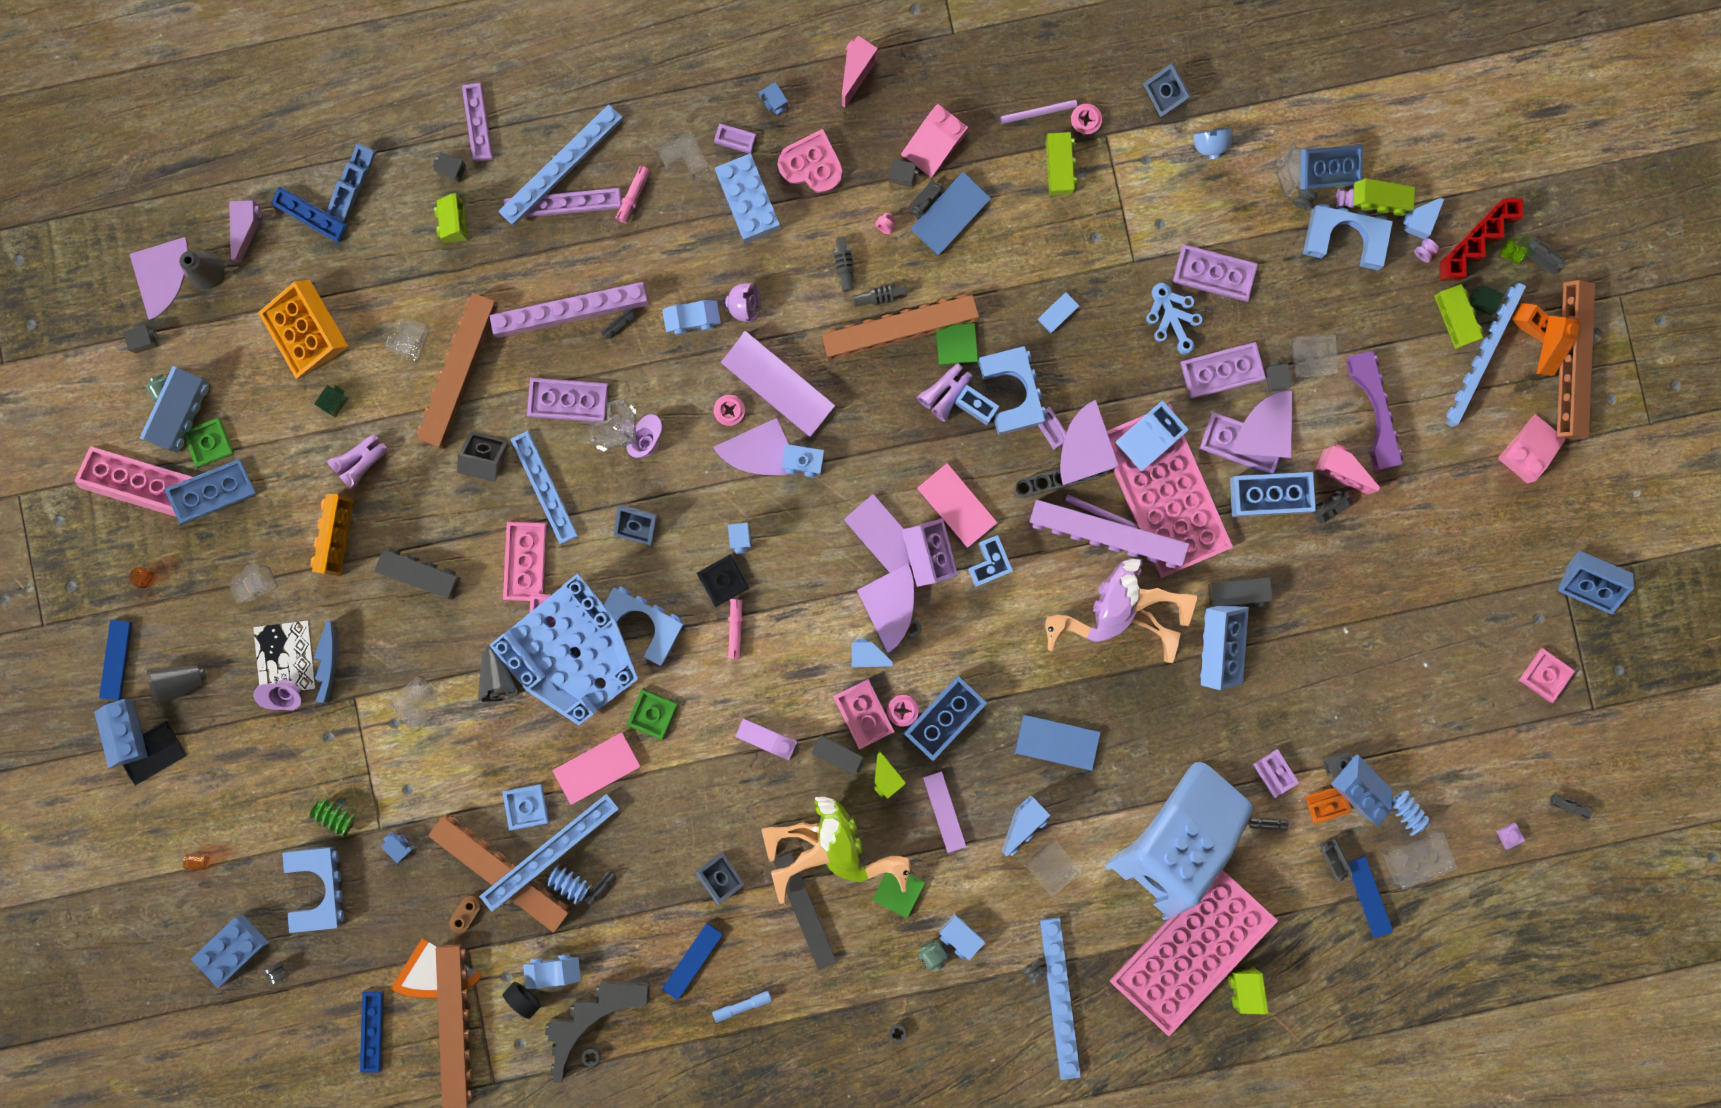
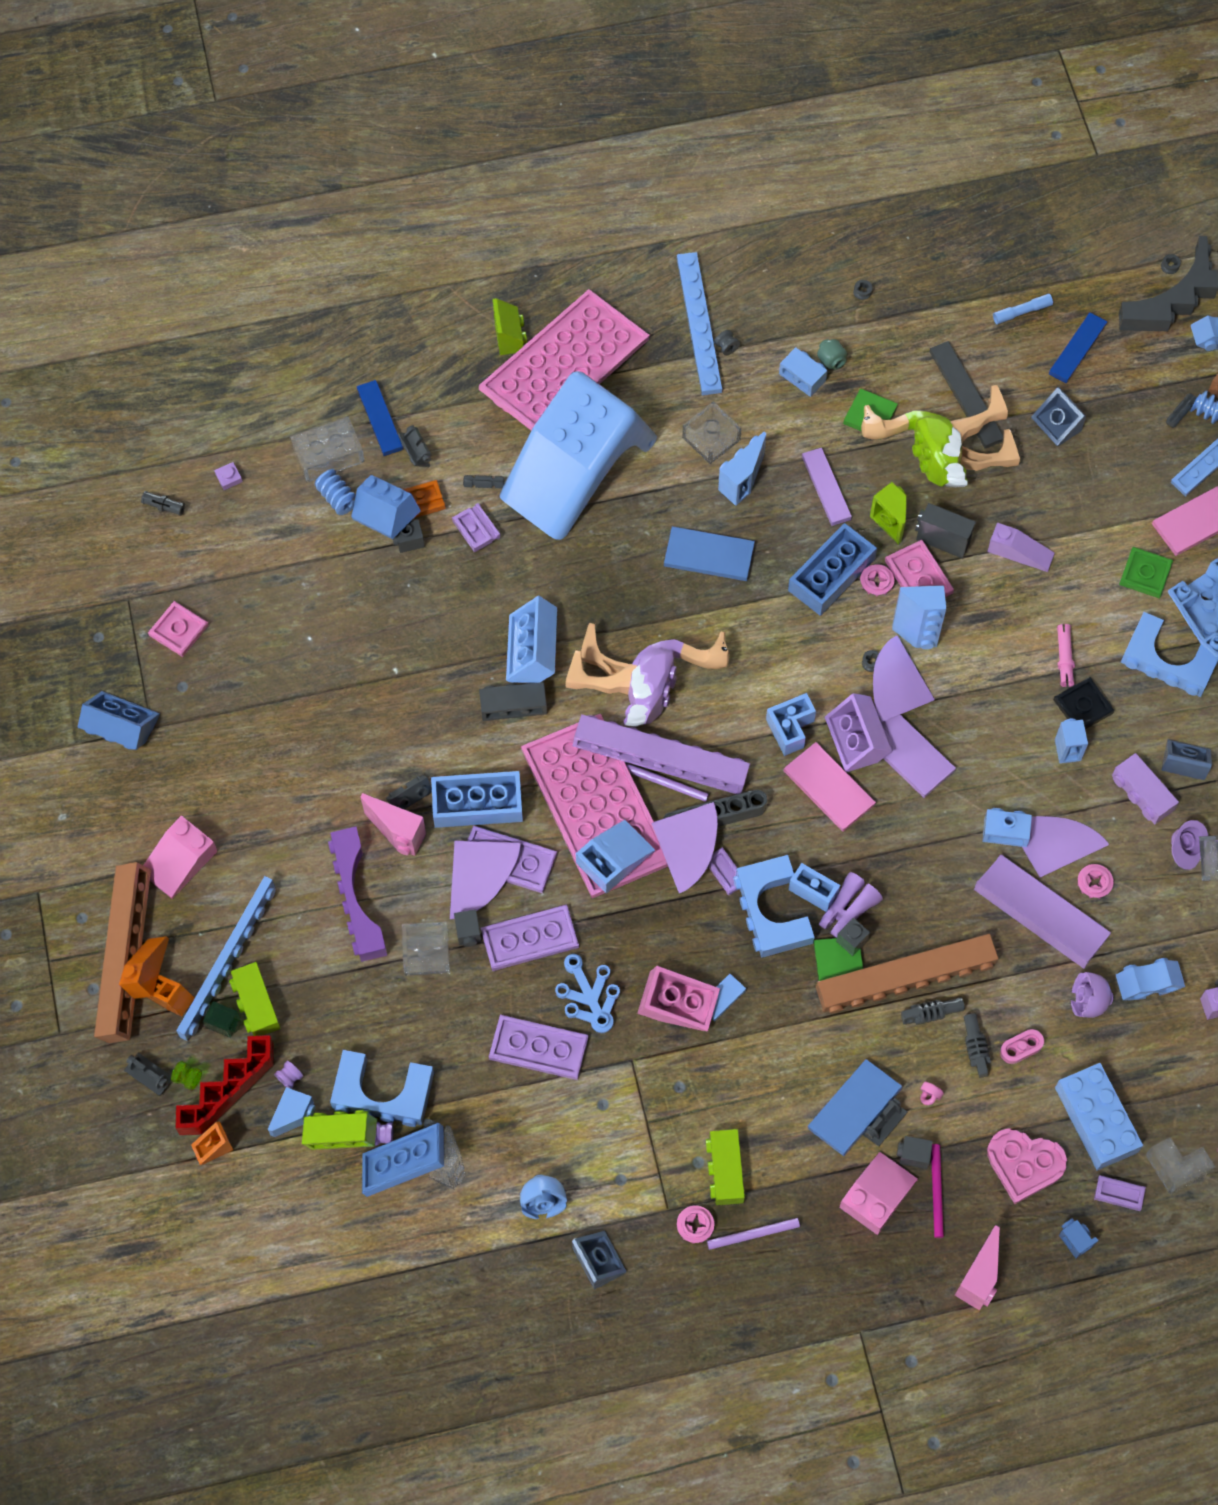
camera: 175 degrees left, 20 degrees down
(677, 494) = (1144, 789): none -> lavender brick
(805, 262) = (1021, 1047): none -> bright pink plate
(885, 144) = (937, 1191): none -> dark pink bar
(945, 357) = (852, 936): none -> dark grey brick
(1097, 306) = (678, 999): none -> bright pink slope
(1486, 193) = (211, 1144): none -> orange slope

